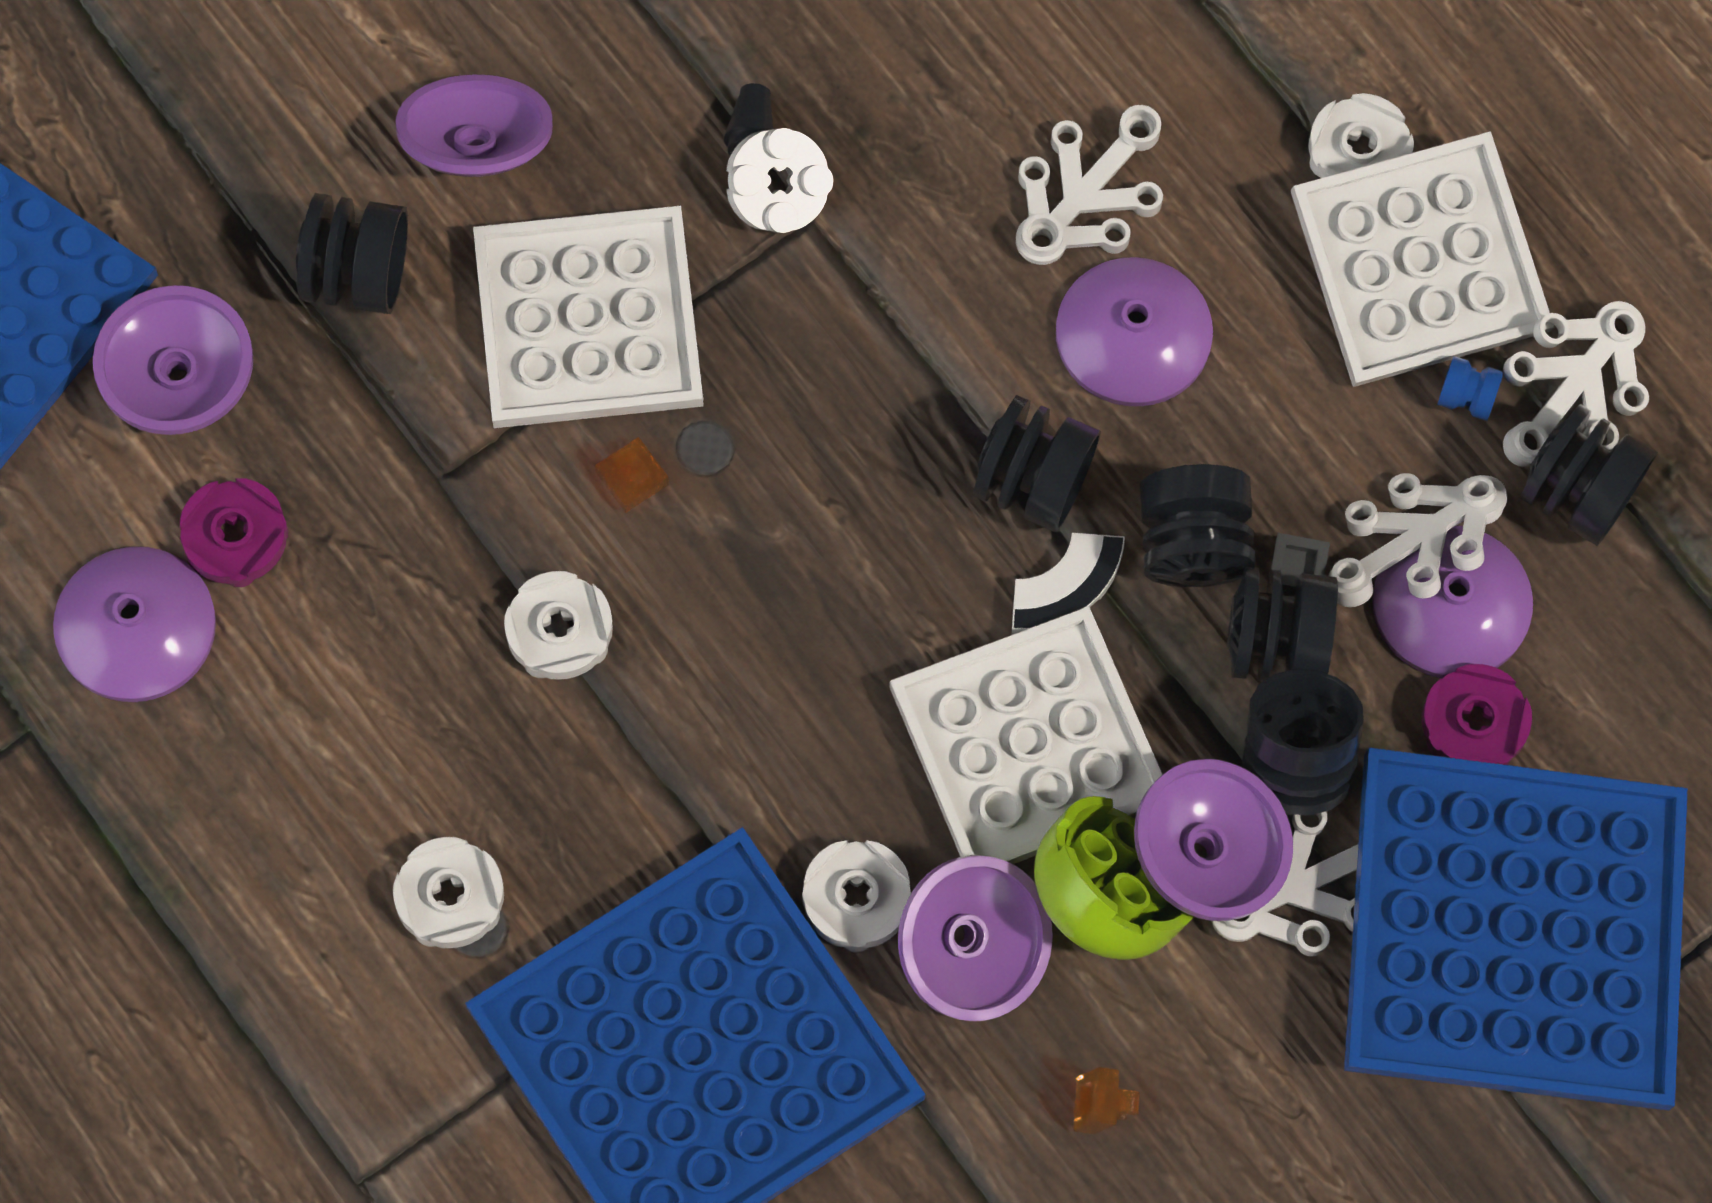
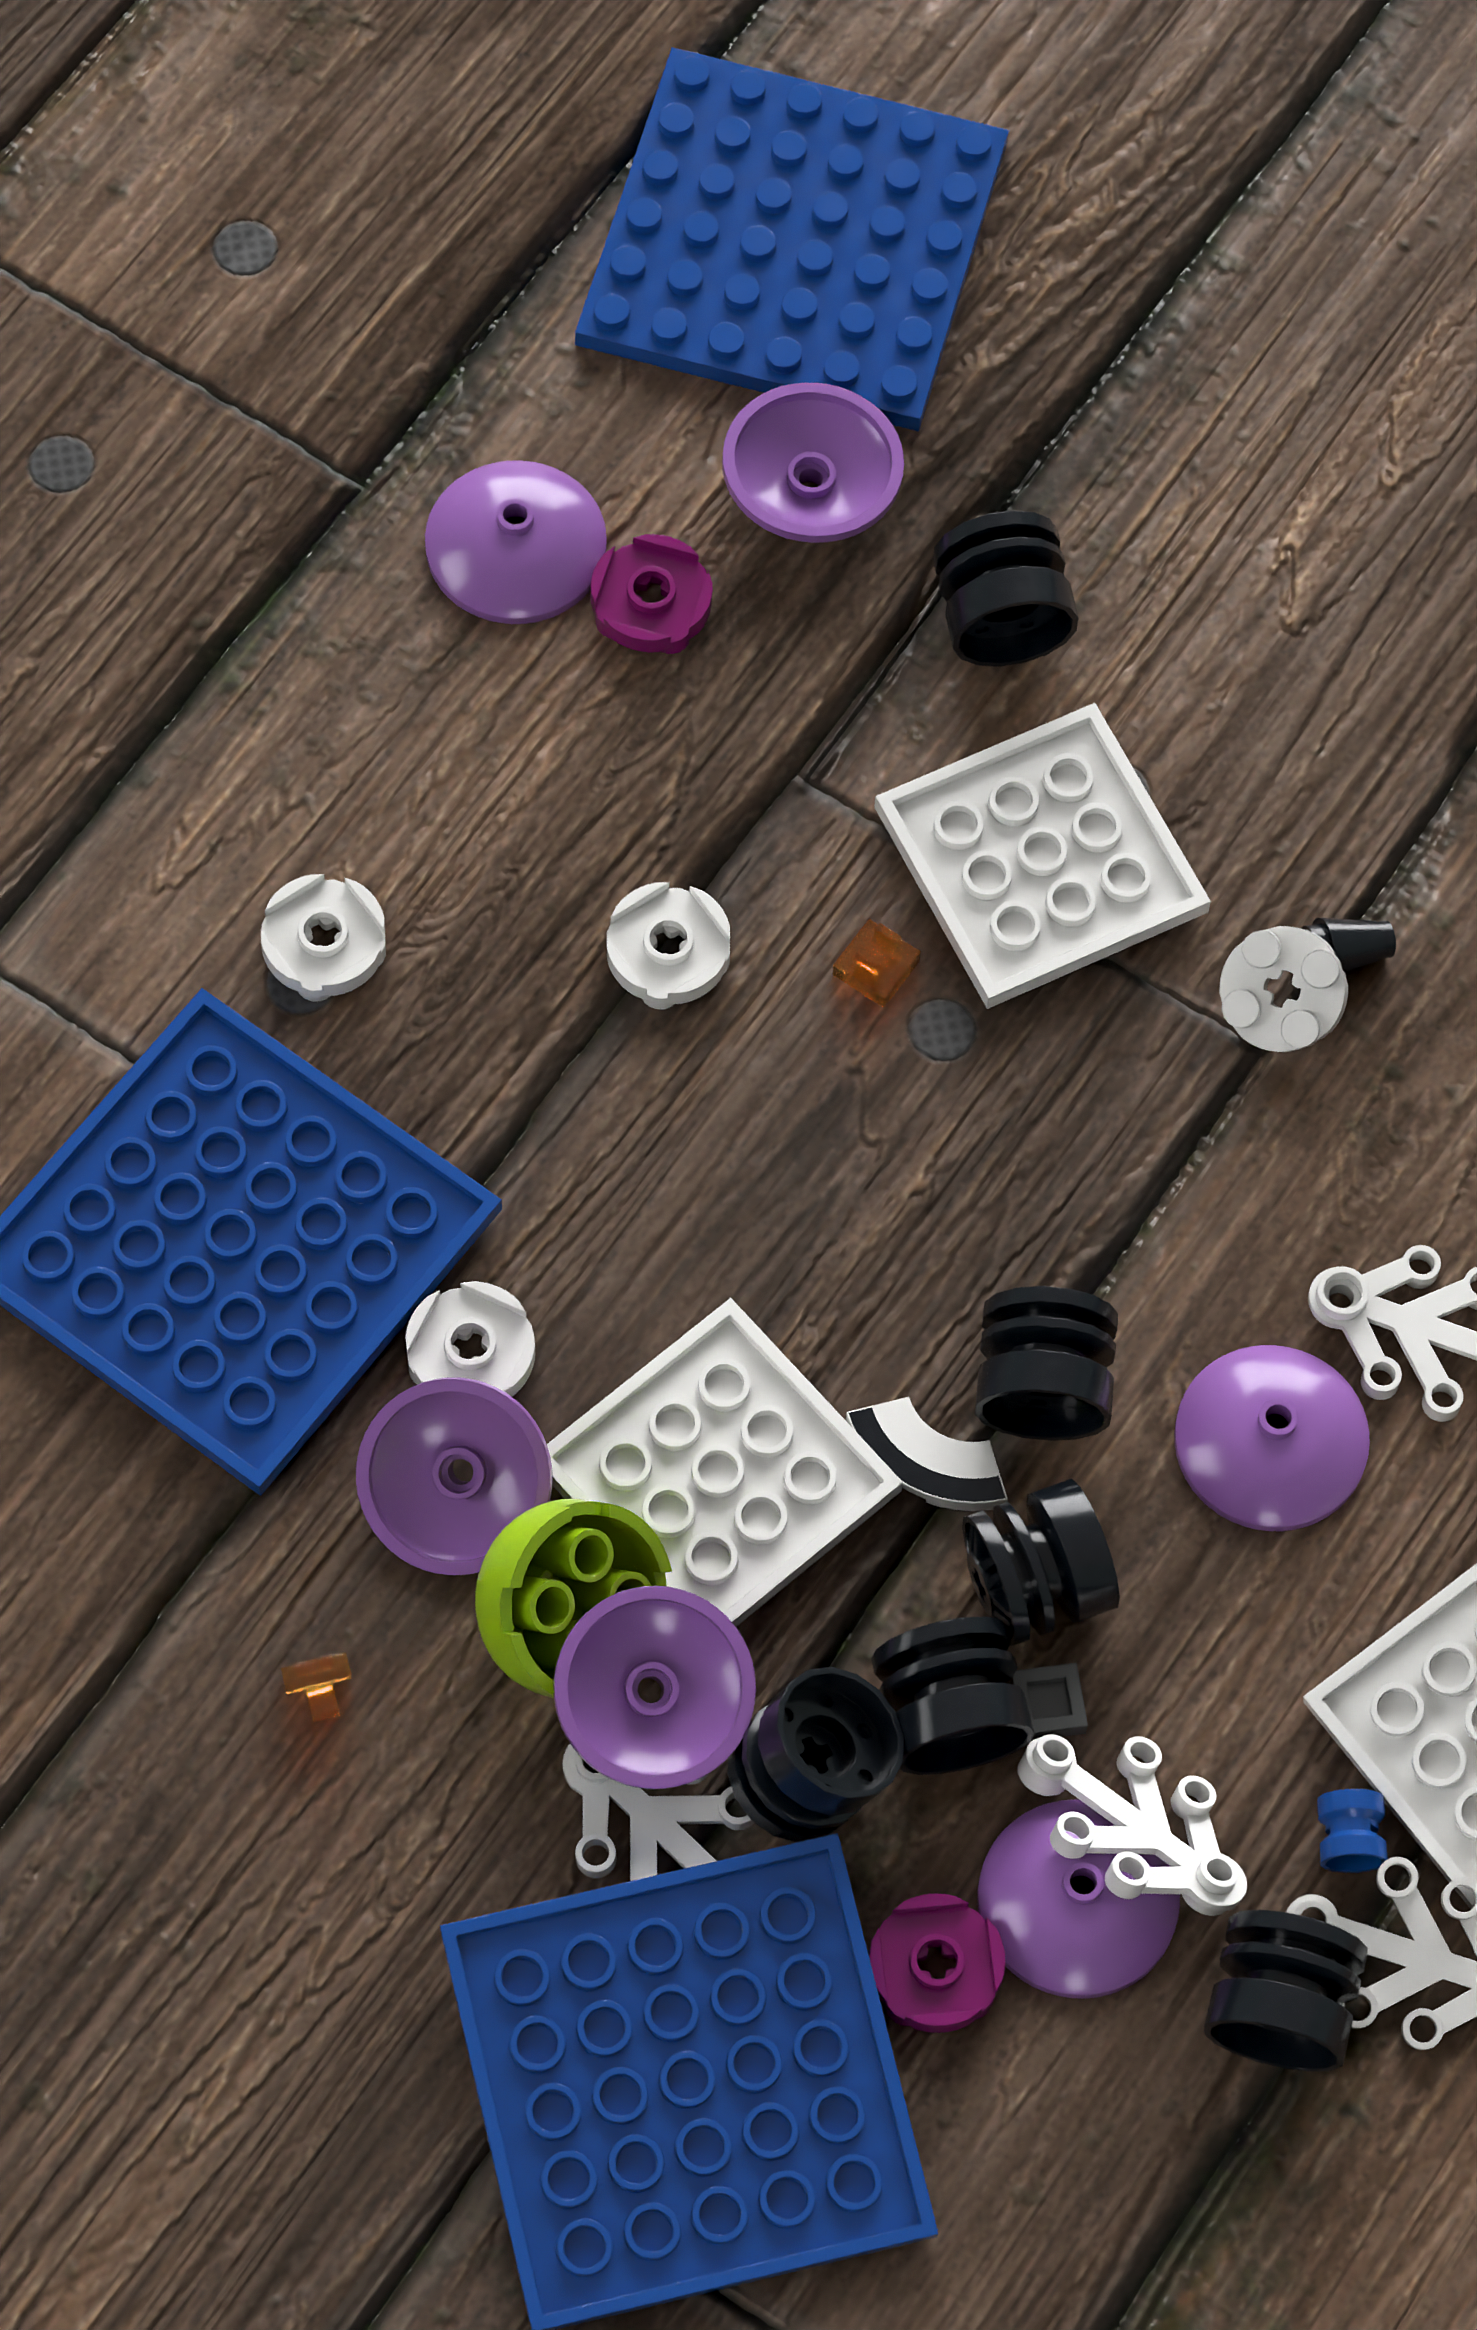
camera: 70 degrees right, 5 degrees down
(474, 125) = (1210, 658): medium lavender dish -> none

